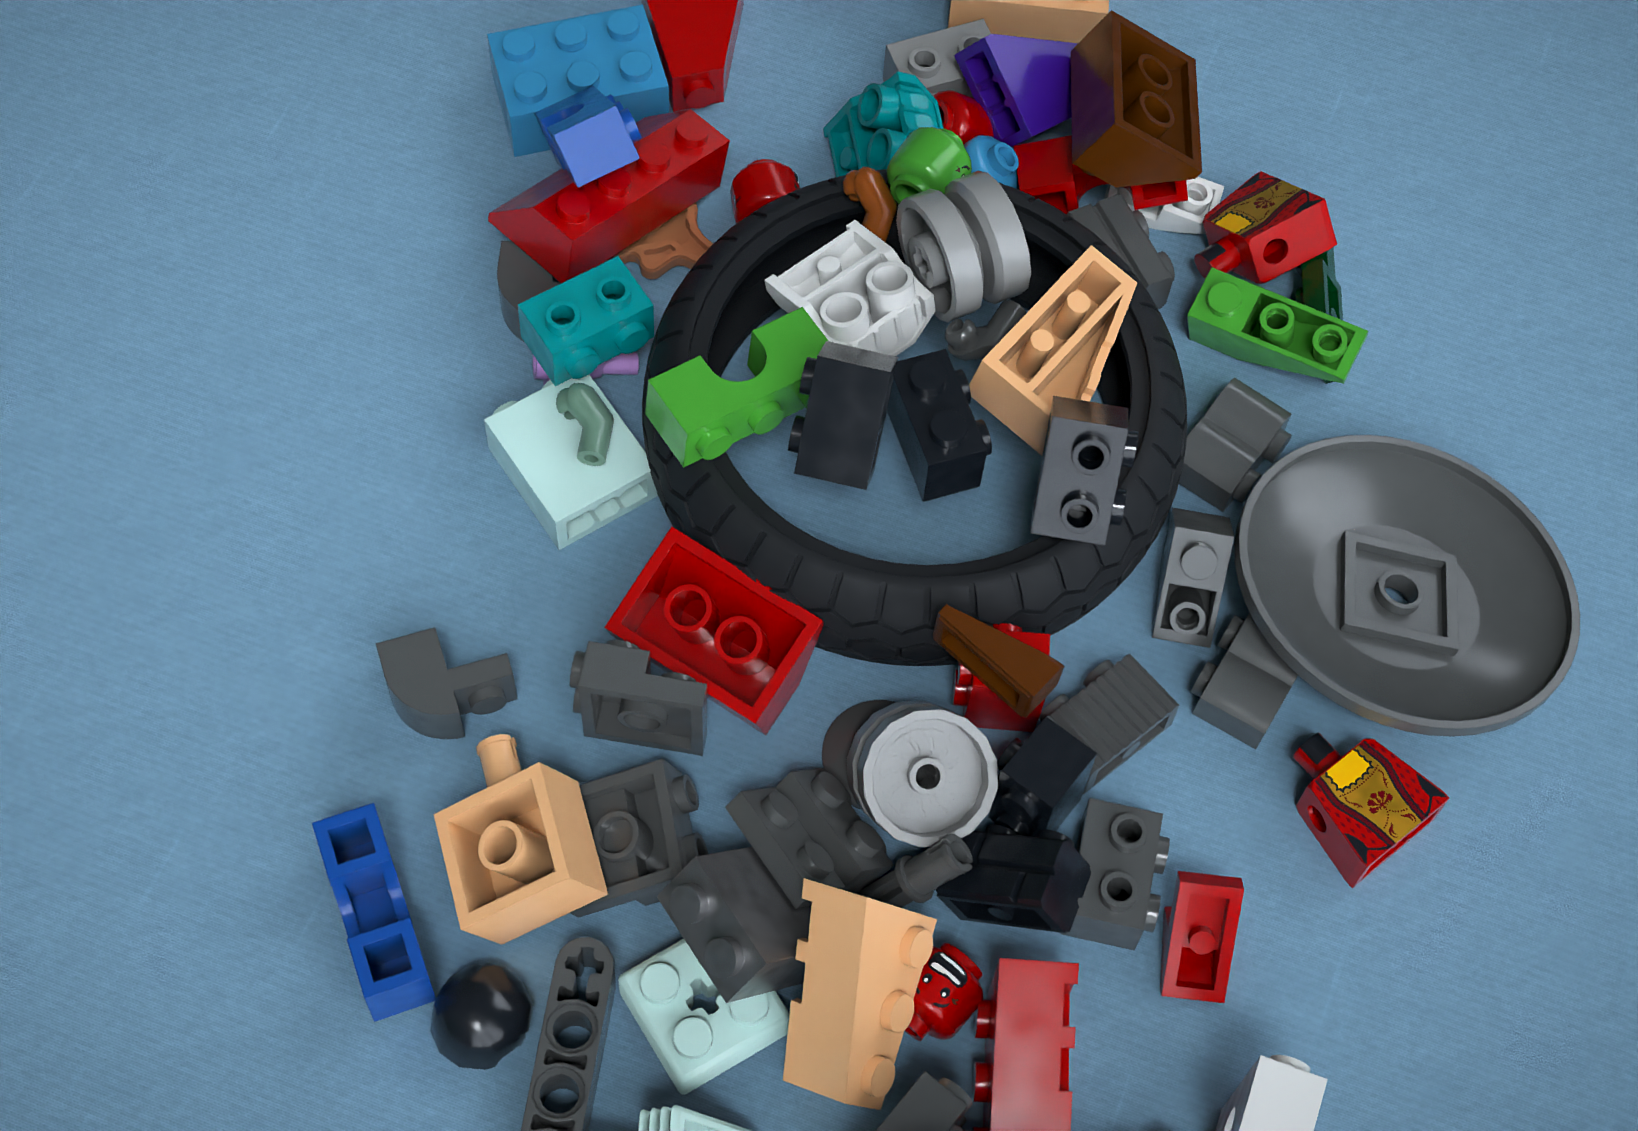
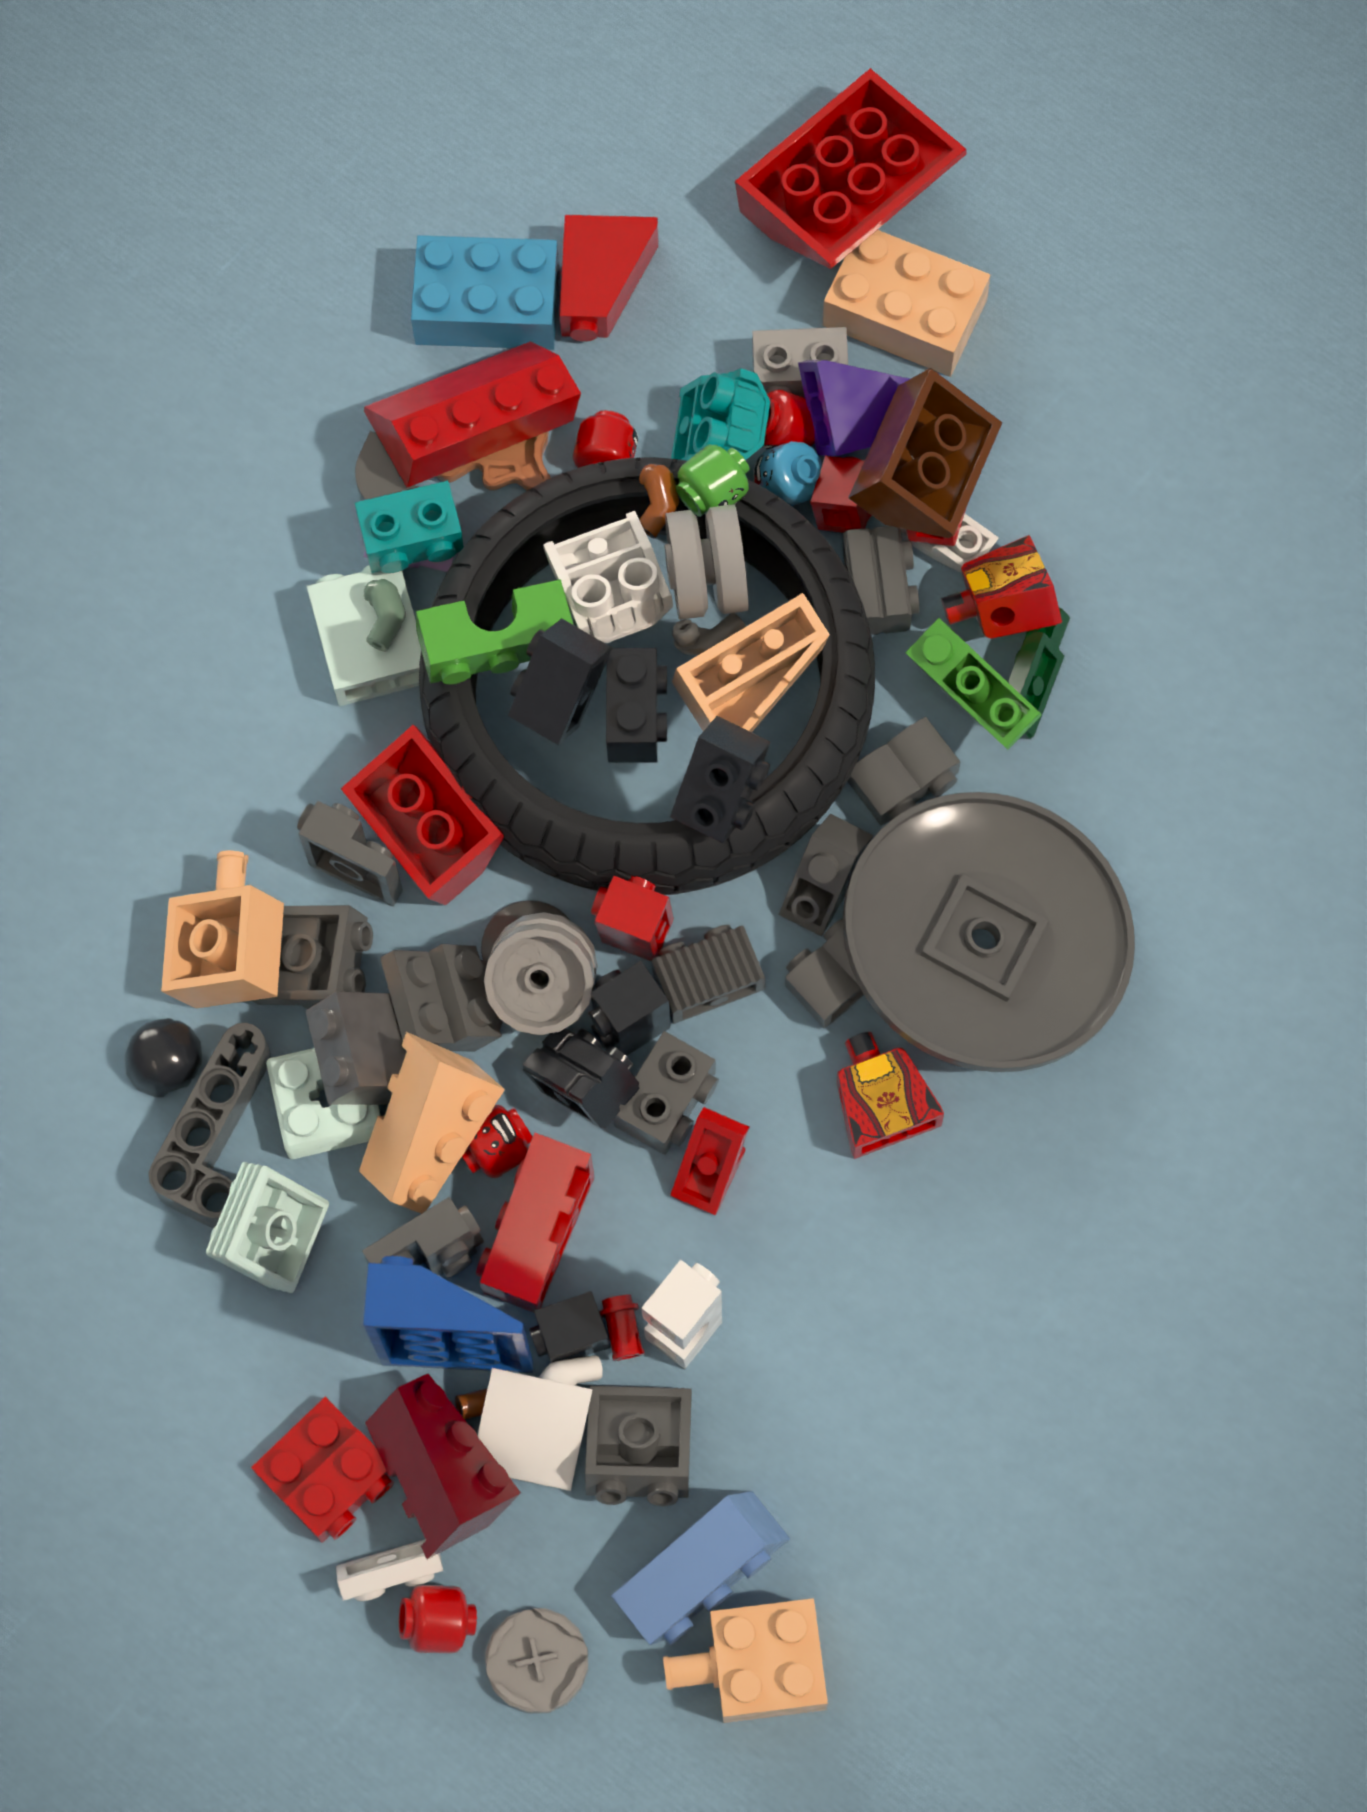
camera: 25 degrees right, 10 degrees up
(374, 912) = (108, 942): blue arch -> none
(434, 697) = (202, 802): dark grey brick -> none
(589, 134) = (460, 363): arch -> none
(920, 875) = (511, 1051): dark grey axle -> none
(1002, 663) = (623, 919): reddish brown slope -> none

